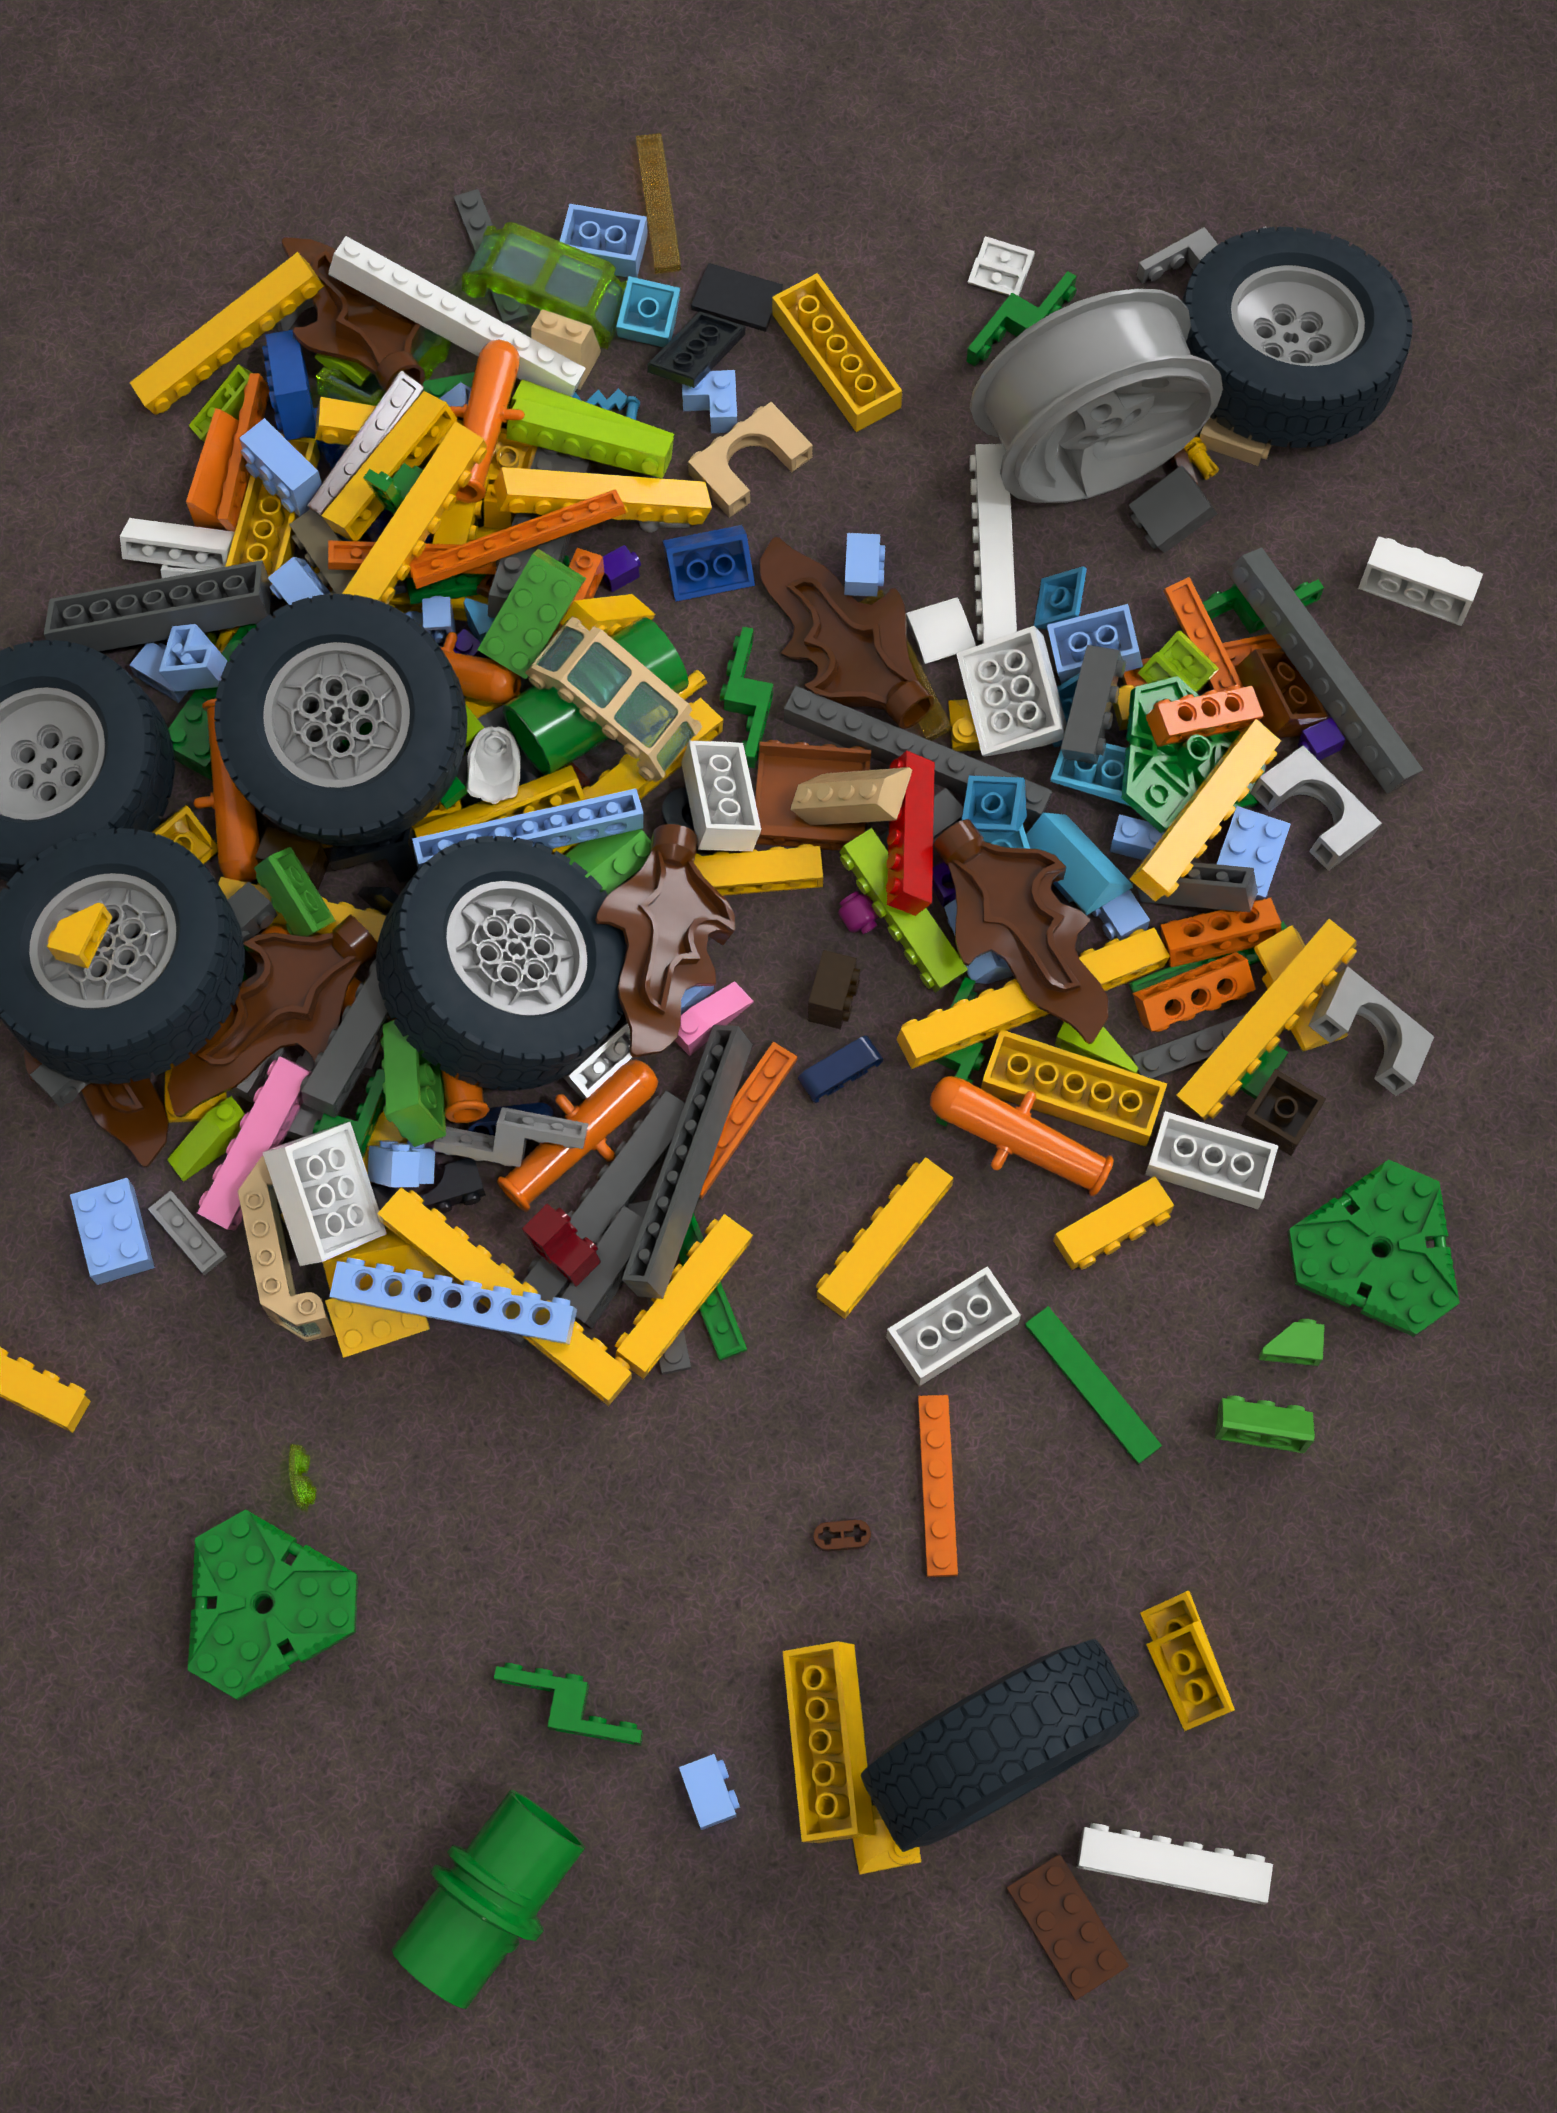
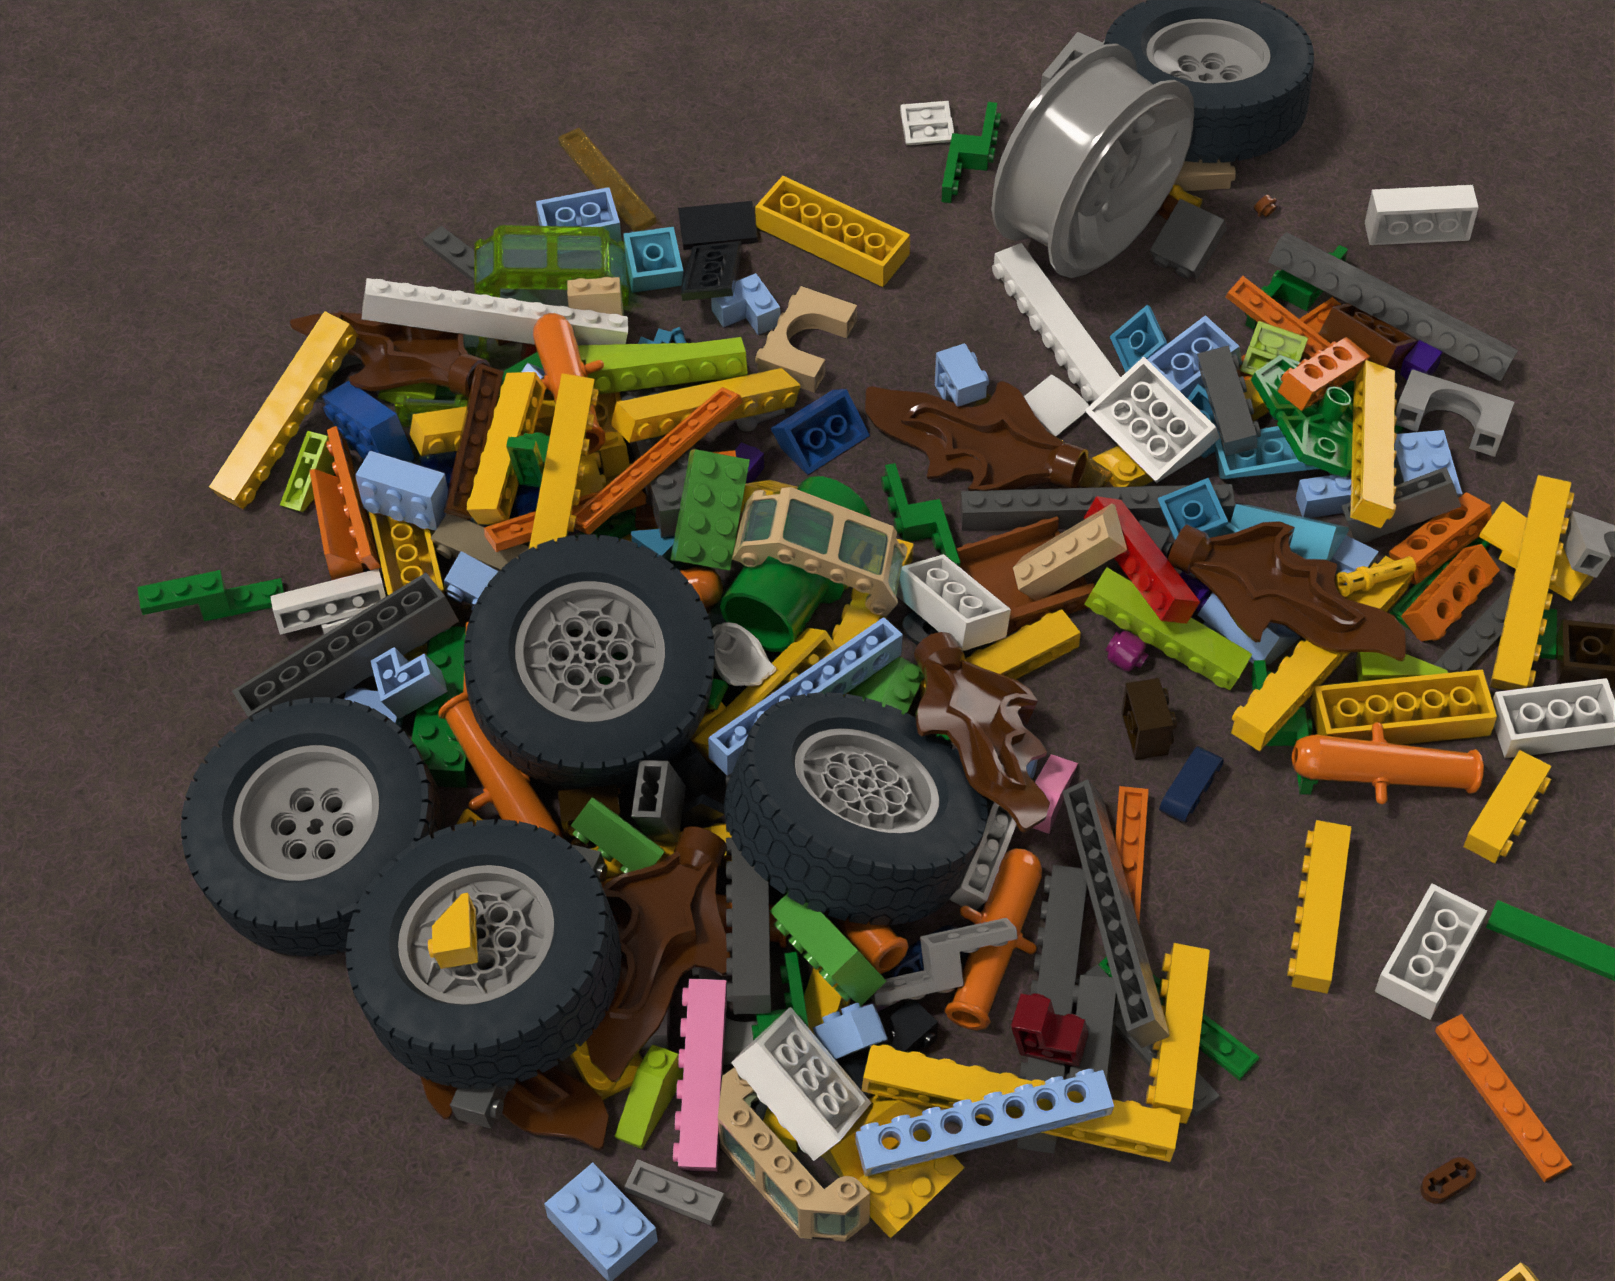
camera: 25 degrees left, 15 degrees down
(78, 493) = (210, 594): none -> green bracket
(343, 877) = (658, 801): none -> dark grey brick
(1109, 945) = (1401, 567): none -> yellow pin
(1278, 502) = (1265, 206): none -> dark orange plate

